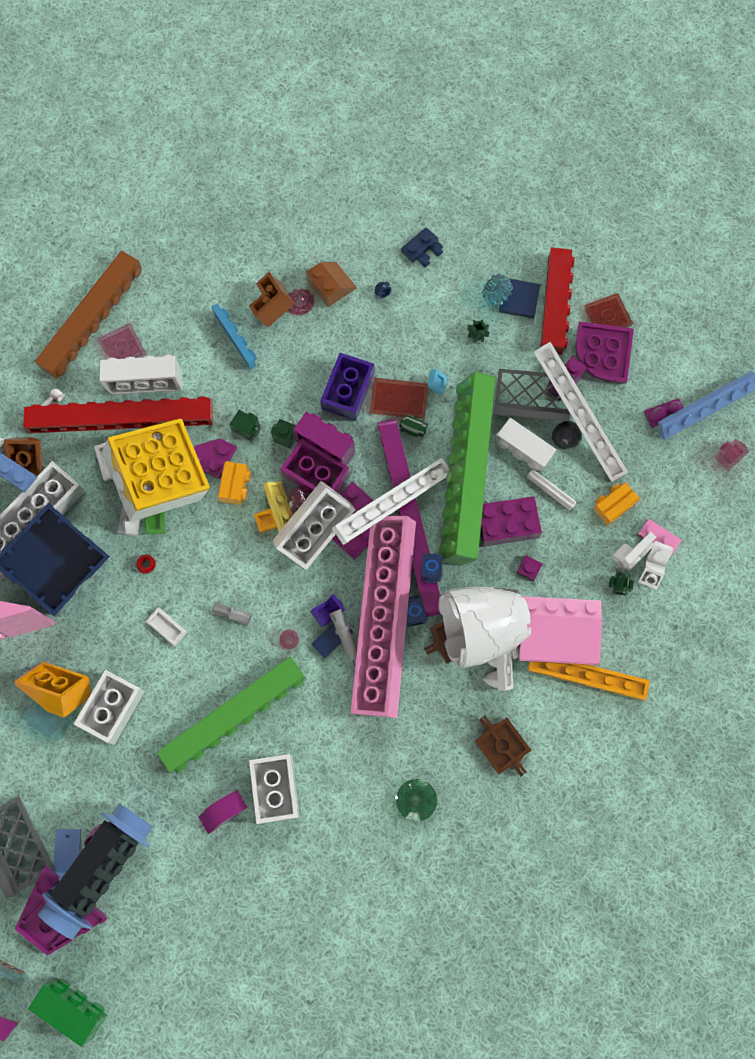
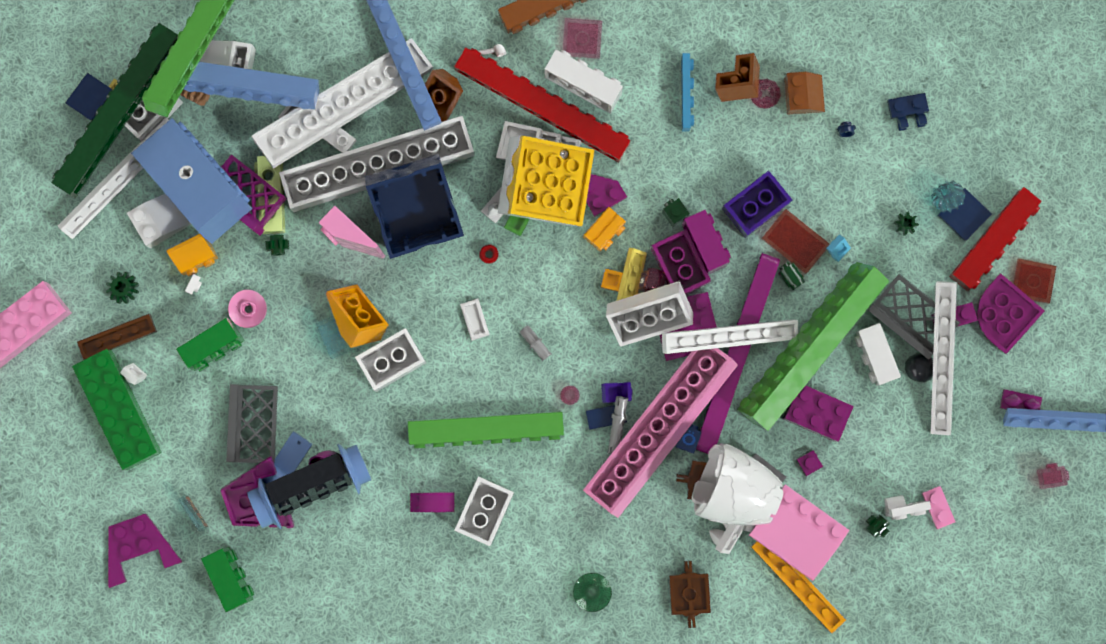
camera: 30 degrees right, 10 degrees up
(245, 425) = (646, 183): dark green brick -> none
(431, 568) = (725, 413): dark blue brick -> none
(551, 489) = (874, 407): white axle -> none
(616, 503) = (921, 456): light orange brick -> none
(655, 565) = (918, 528): white slope -> none

